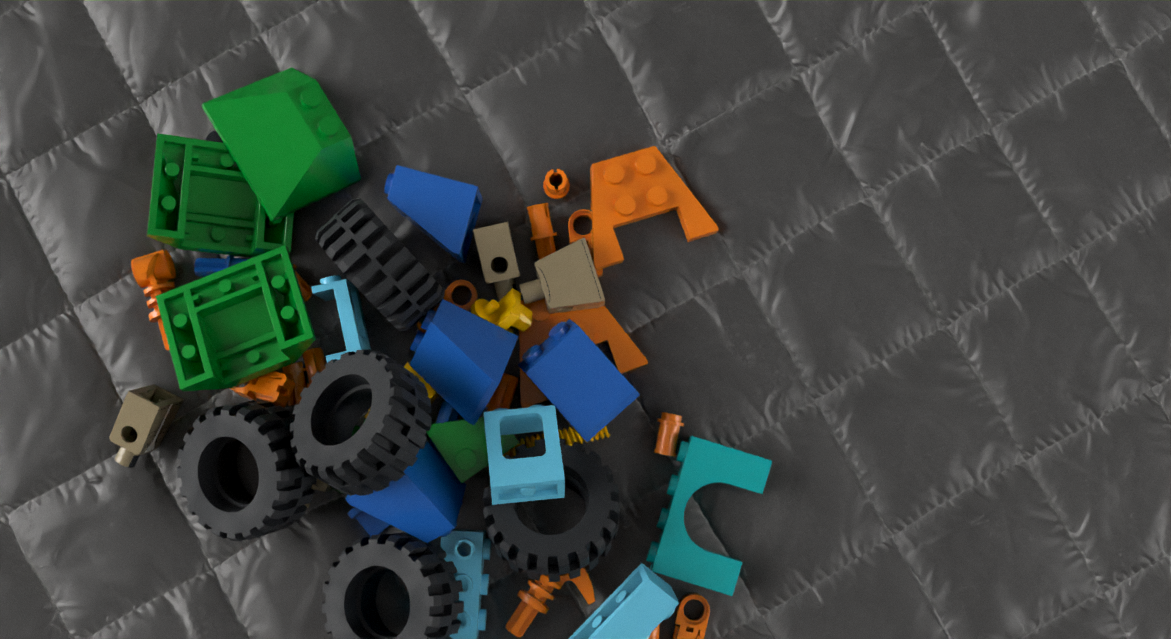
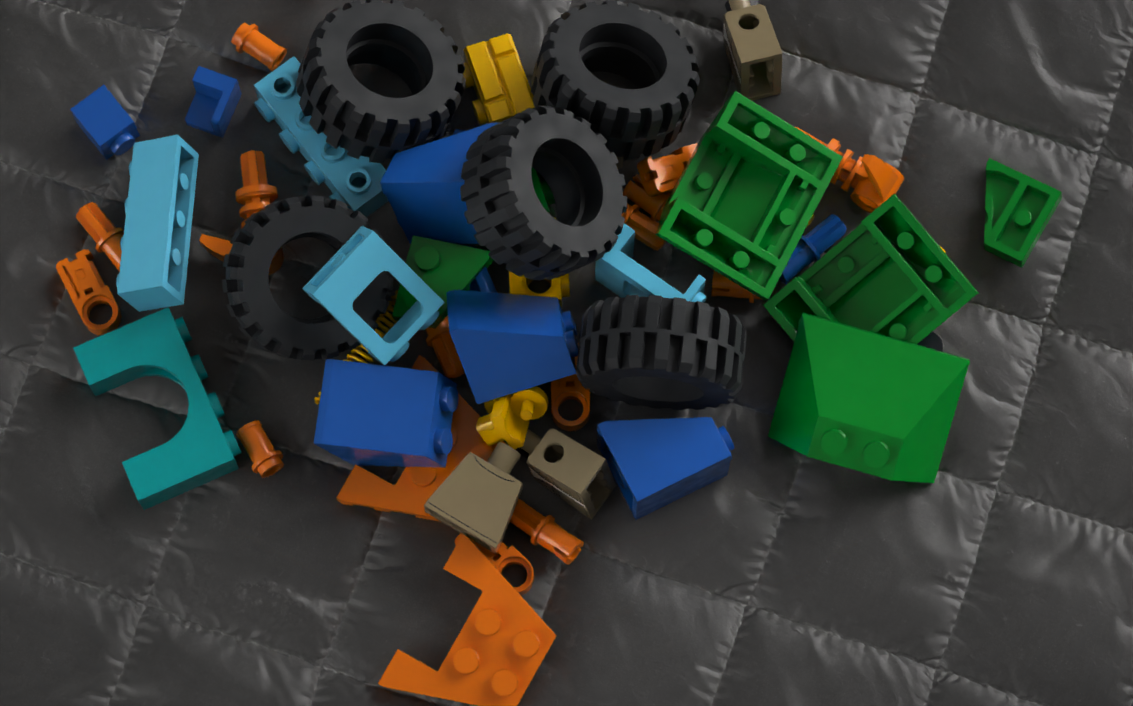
camera: 140 degrees right, 10 degrees down
(87, 181) = (1015, 212): none -> green wing
(319, 540) = (497, 79): none -> yellow brick
(550, 190) = (574, 599): orange pin -> none

